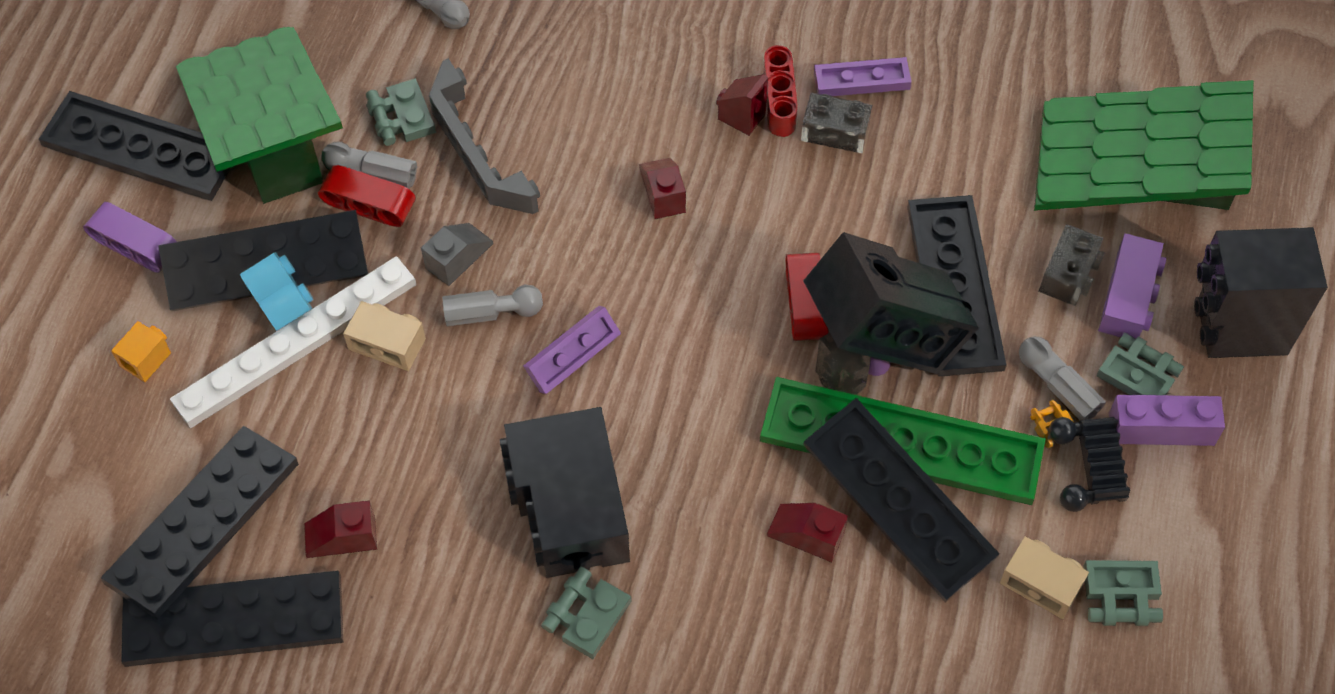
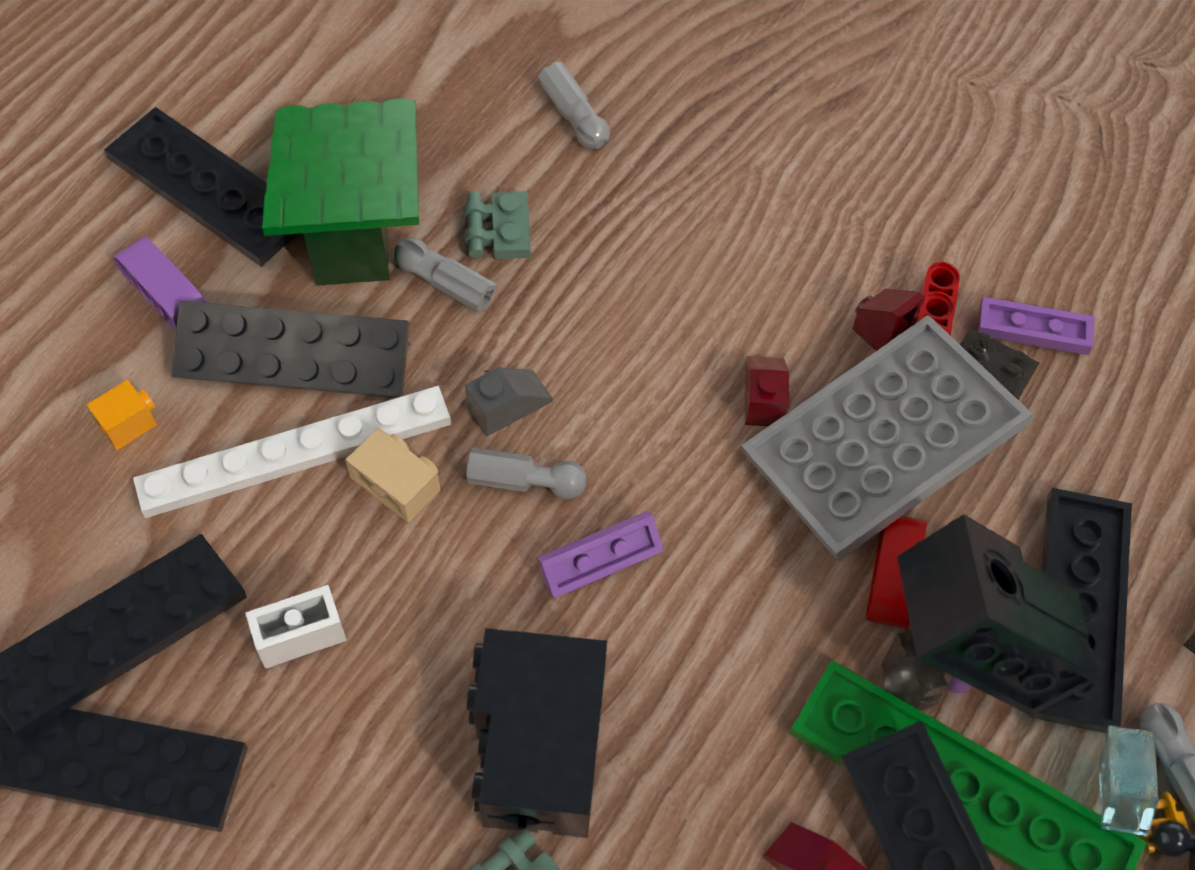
camera: 15 degrees right, 0 degrees up
(277, 291) = (290, 388): medium azure brick -> none
(341, 530) = (265, 694): dark red slope -> none
(350, 470) = (295, 626): none -> white brick
(367, 195) = (429, 308): red beam -> none
(512, 192) = (588, 348): dark grey slope -> none
(767, 195) = (885, 436): none -> light grey plate
(1019, 397) = (1128, 780): none -> clear light blue brick

